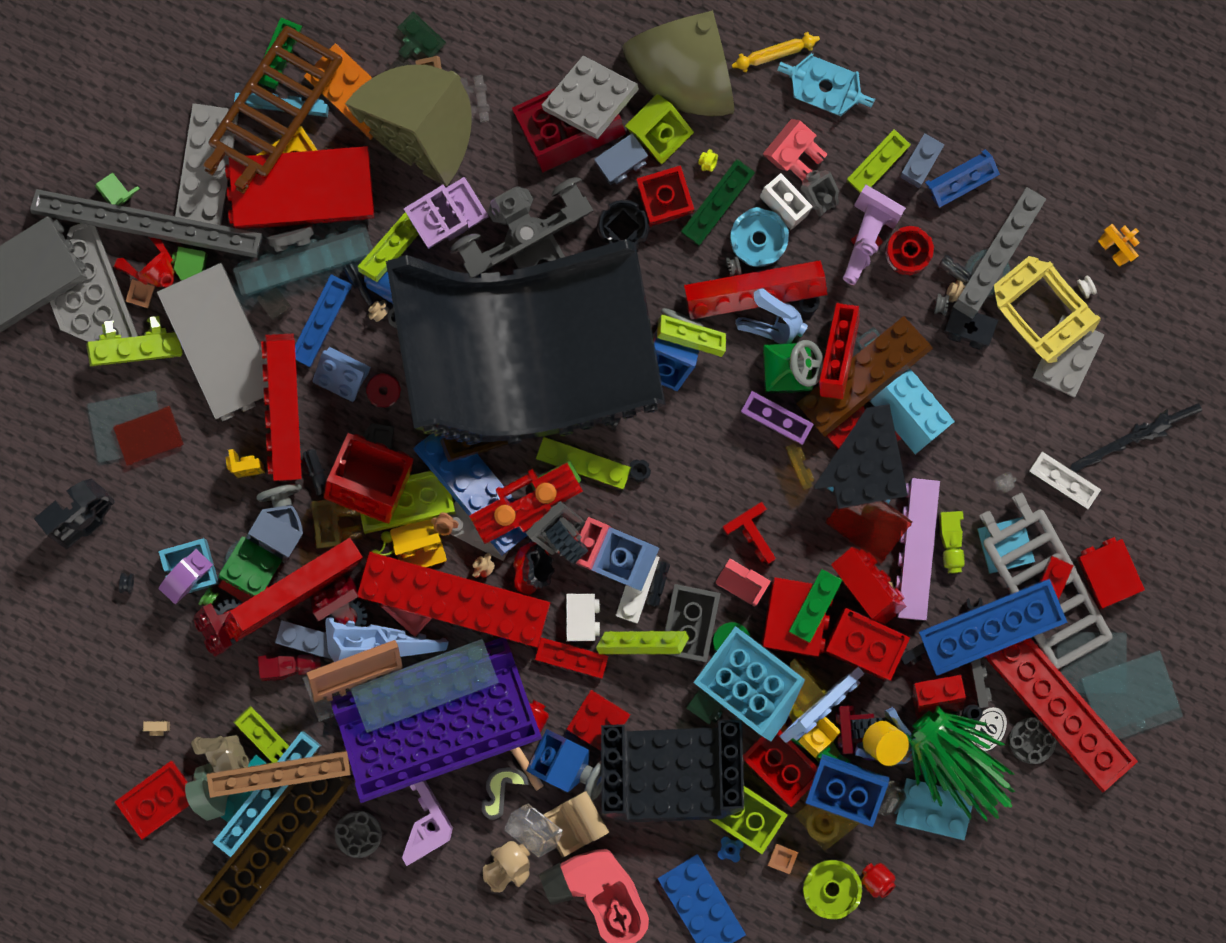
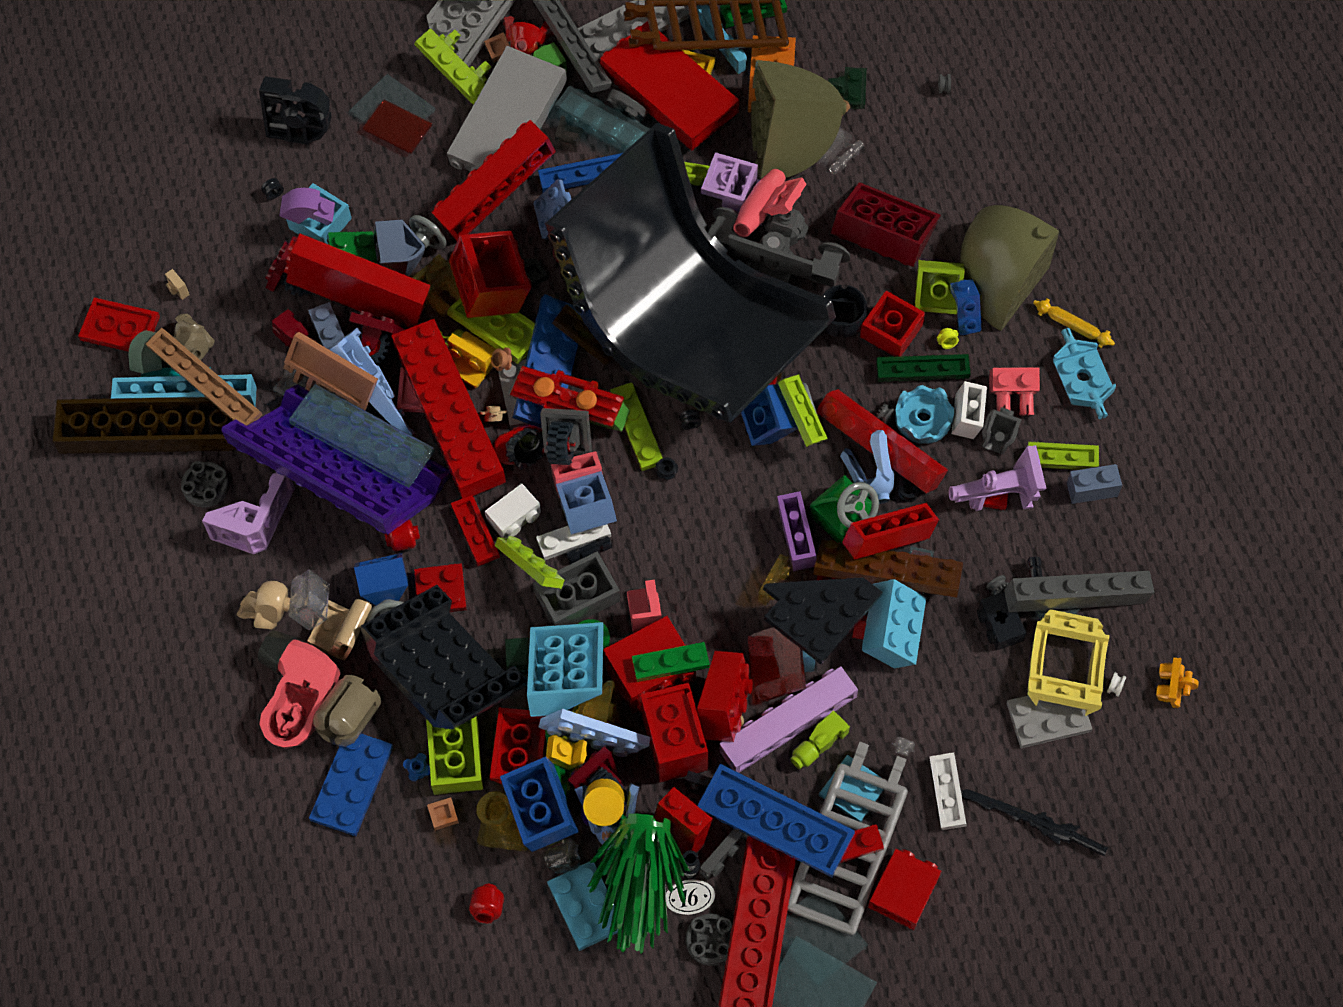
camera: 50 degrees right, 20 degrees down
(246, 467) = (426, 193): yellow bracket -> none
(261, 734) = (230, 352): lime hinge -> none
(484, 203) = (769, 196): none -> coral plate
(496, 789) = (321, 554): animal -> none
(524, 763) = (363, 555): light nougat piece -> none
(590, 97) = (916, 218): light grey plate -> none
(621, 160) = (891, 277): sand blue brick -> none
(651, 872) = (346, 711): none -> dark tan cylinder
(698, 124) = (968, 306): none -> blue bracket
(751, 532) = (693, 573): red bracket -> none
(844, 901) = (441, 856): lime plate -> none
(918, 241) = (1006, 524): red brick -> none
(963, 178) = (1109, 524): blue container -> none

